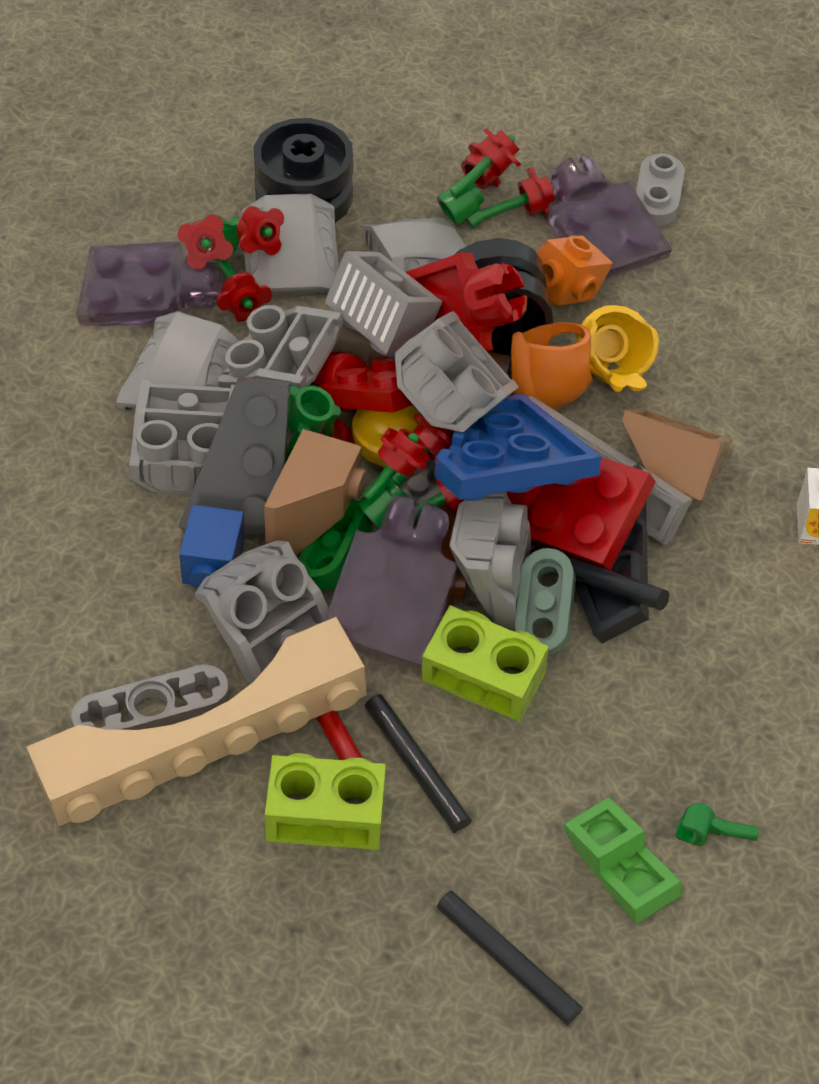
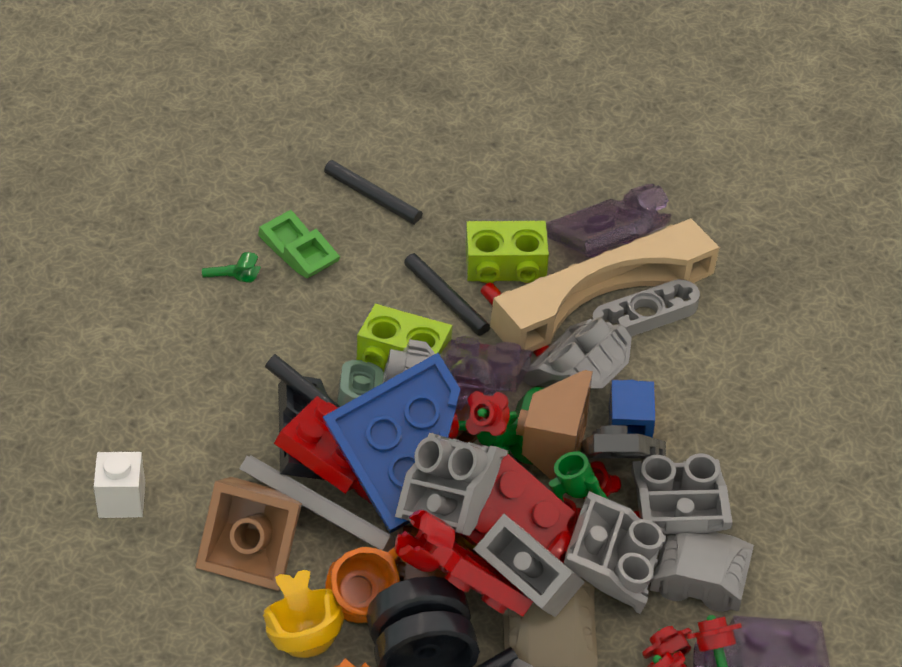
camera: 175 degrees right, 5 degrees down
(169, 824) = (611, 221): none -> plate

